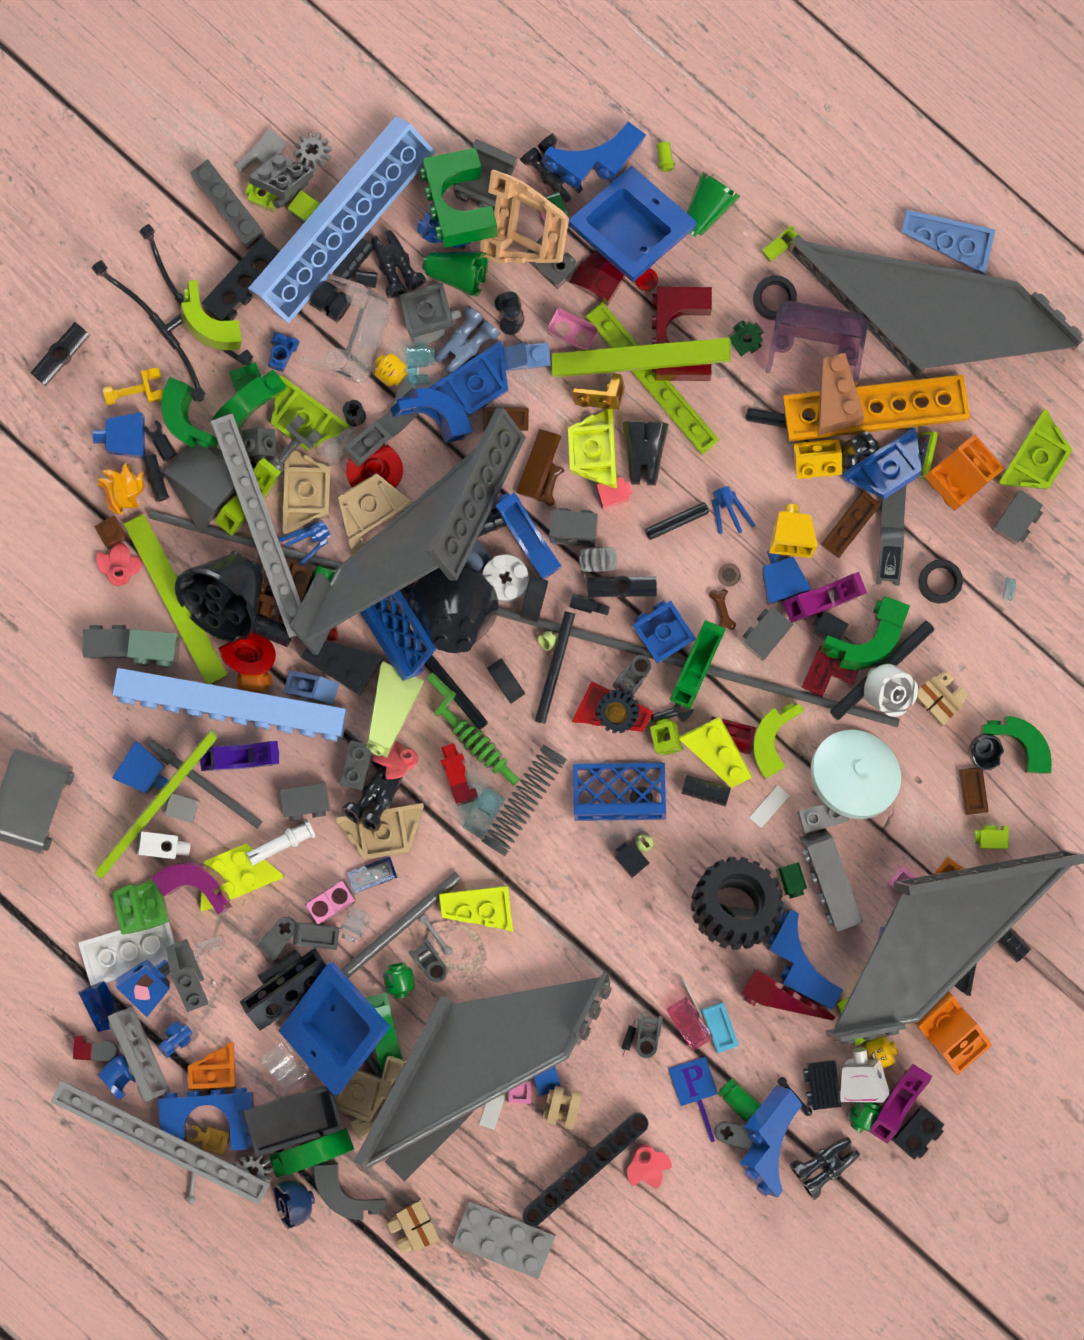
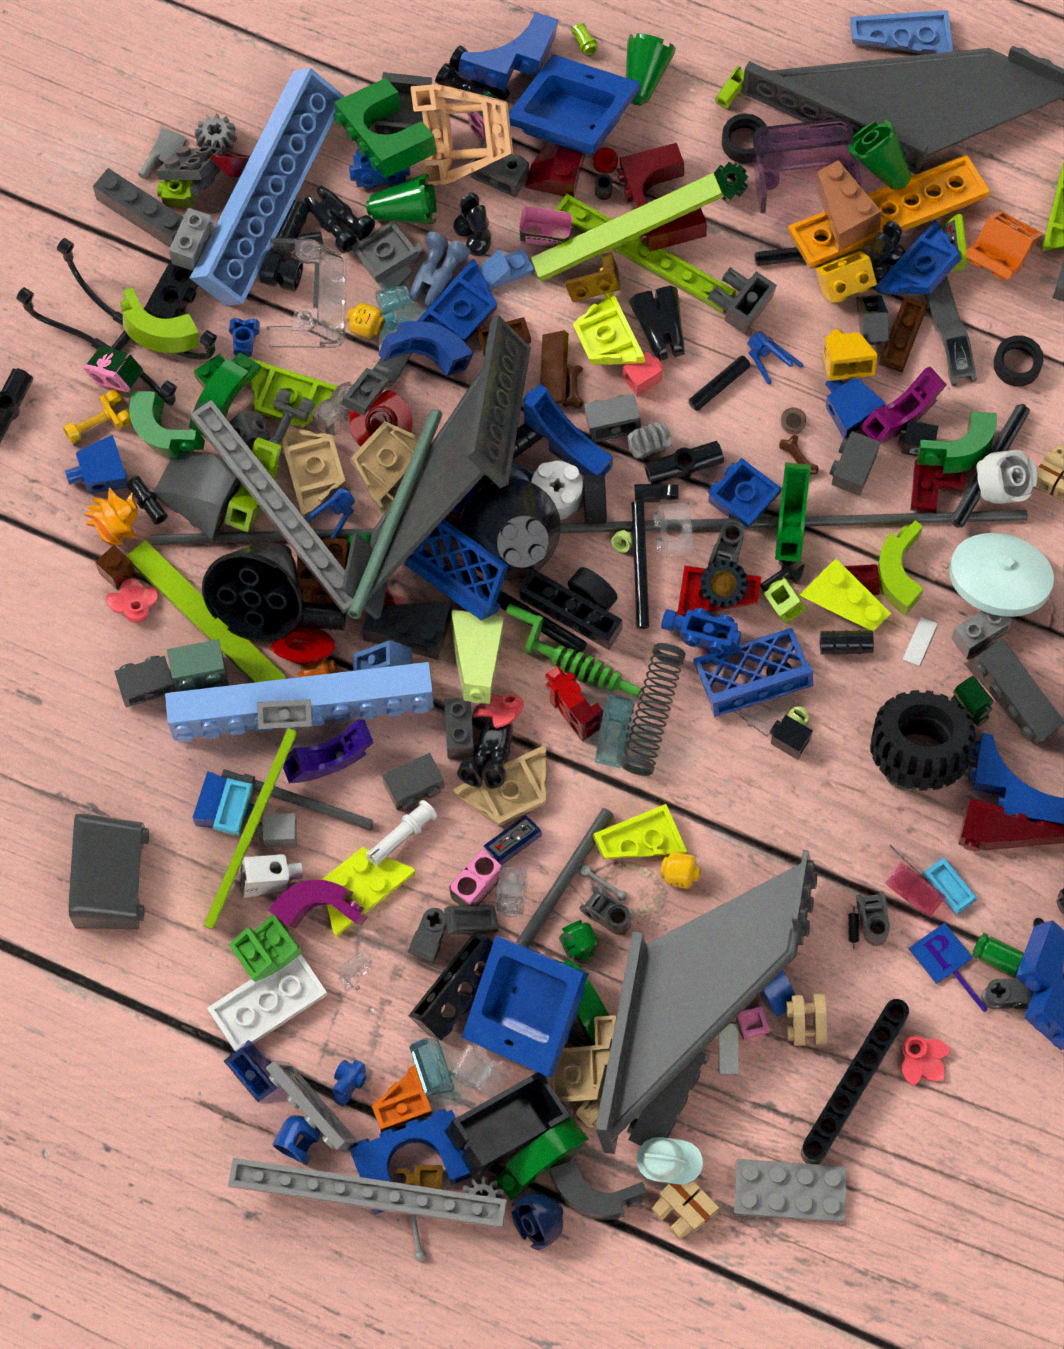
camera: 15 degrees left, 15 degrees down
(94, 1051) = (259, 1122): leg -> none
(145, 985) = (297, 1028): blue torso -> none
(147, 780) = (233, 807): none -> medium azure tile
(159, 351) = (107, 370): none -> piece
(161, 442) = (142, 463): black bar -> none
(186, 975) = (341, 999): dark grey panel -> none
(210, 719) = (284, 714): none -> light grey plate
(246, 1049) = (431, 1066): none -> clear light blue slope
(259, 253) = (191, 239): none -> light grey brick
(279, 966) = (440, 965): black pin -> none
(302, 206) = (221, 189): lime brick -> none
(318, 186) = (231, 163): none -> dark red slope
(356, 420) = (340, 367): black axle -> none
(358, 565) = (394, 514): none -> sand green piece
(412, 1190) = (669, 1160): none -> light aqua piece
(482, 691) = (571, 609): none -> black brick
(501, 946) = (680, 870): none -> yellow head
(592, 661) = (679, 515): none -> clear brick
(594, 746) = (711, 628): none -> blue brick
(636, 300) = (603, 187): none -> black hinge
(732, 451) = (750, 302): none -> dark grey brick
(828, 503) = (873, 319): none -> black slope
(883, 359) = (881, 153): none -> green cone
(891, 611) = (977, 401): green brick -> none

